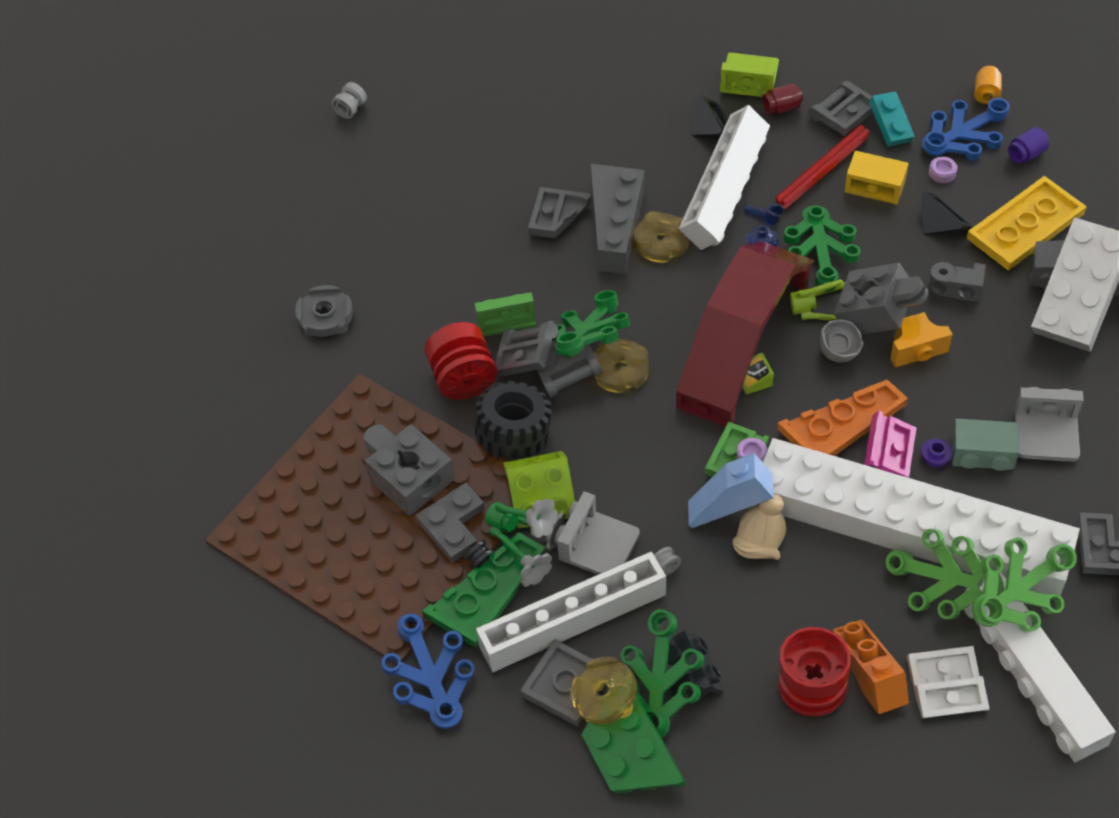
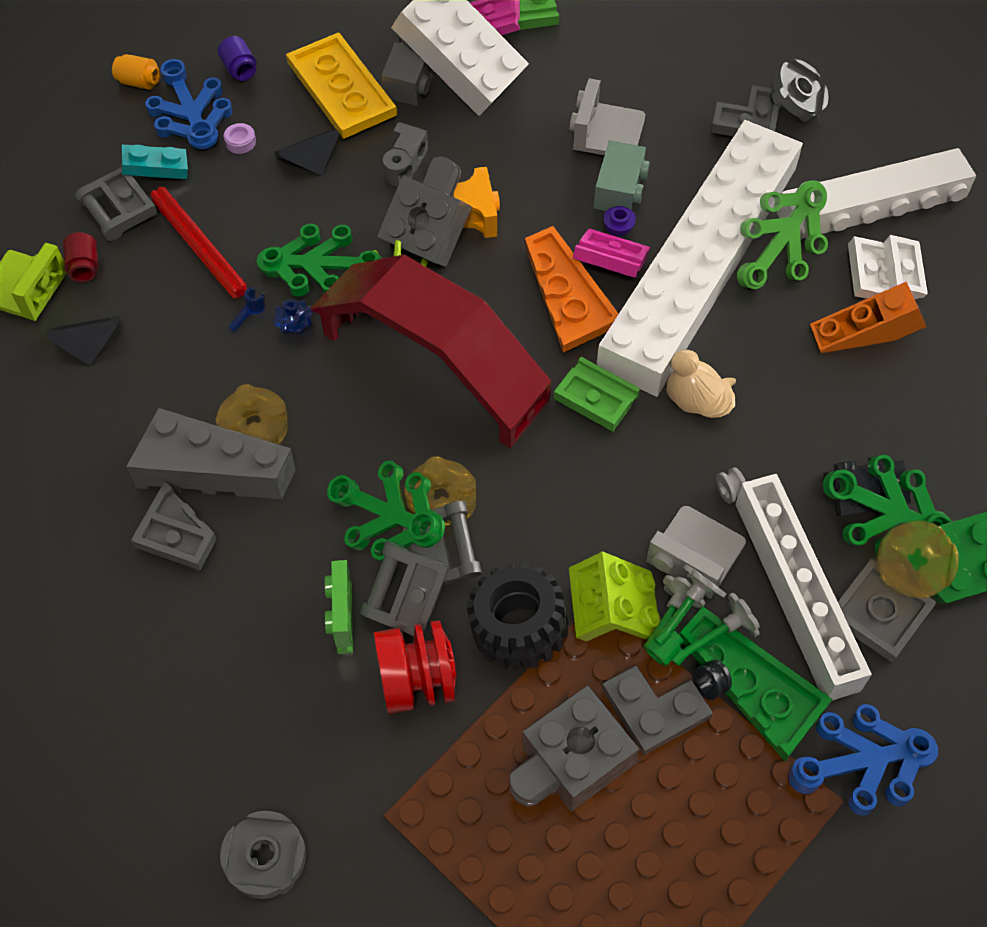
camera: 85 degrees left, 5 degrees up
(724, 178) = (191, 331): white brick -> none
(731, 489) = (667, 400): light blue slope -> none
(750, 446) = (605, 373): lavender tile -> none
(814, 671) = (890, 363): red wheel -> none
(840, 341) = (465, 267): light grey hair -> none
(876, 177) = (236, 193): yellow brick -> none
(1018, 587) = (844, 188): bright green plant -> none

